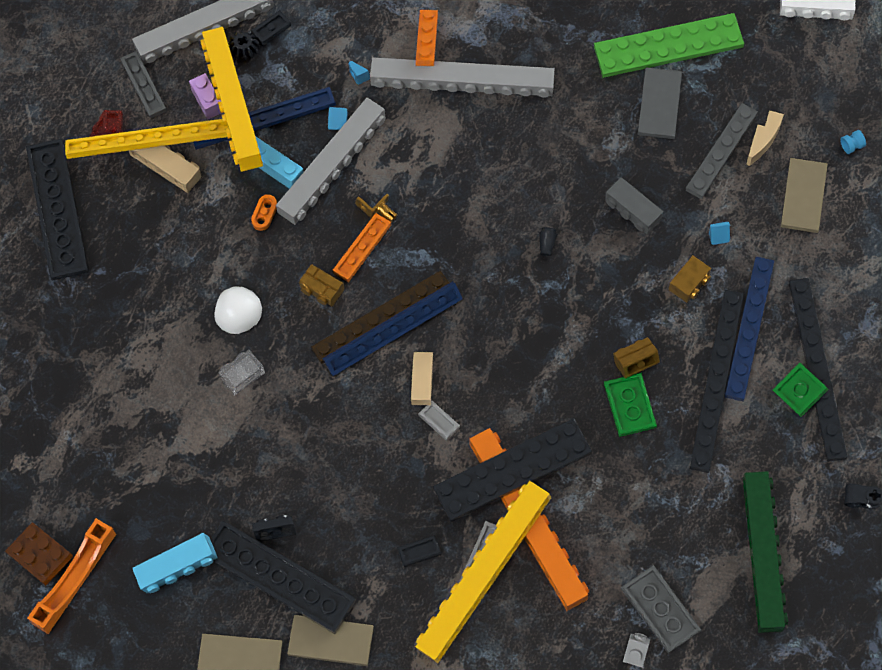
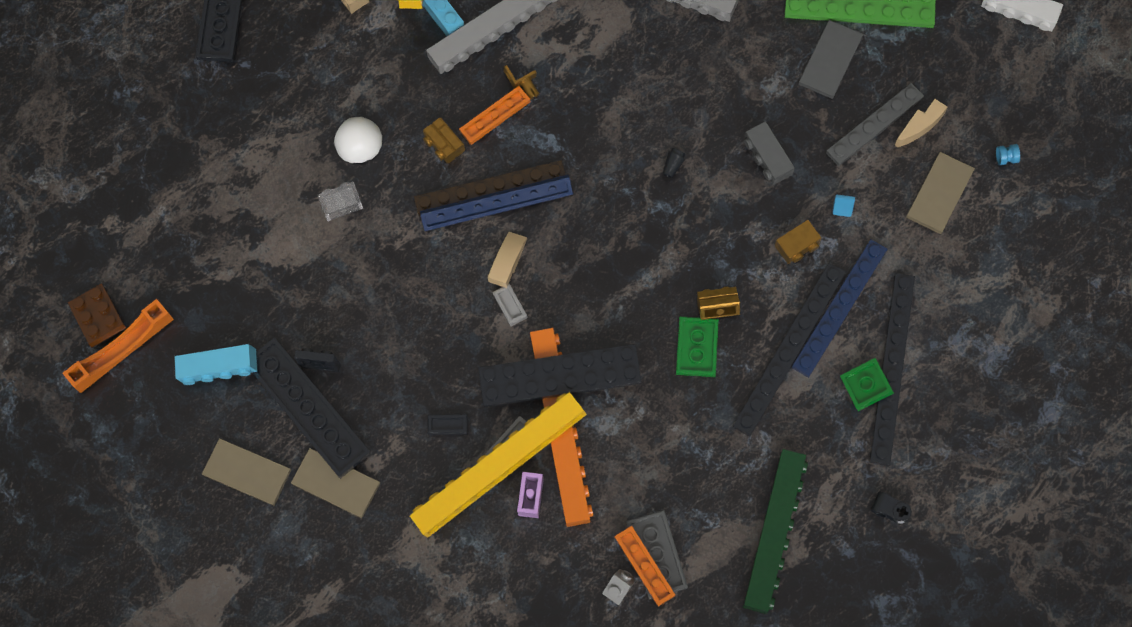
camera: 20 degrees right, 5 degrees up
(263, 213) = (413, 54): orange plate -> none
(523, 590) = (530, 495): none -> lavender brick
(655, 622) = (645, 566): none -> orange plate

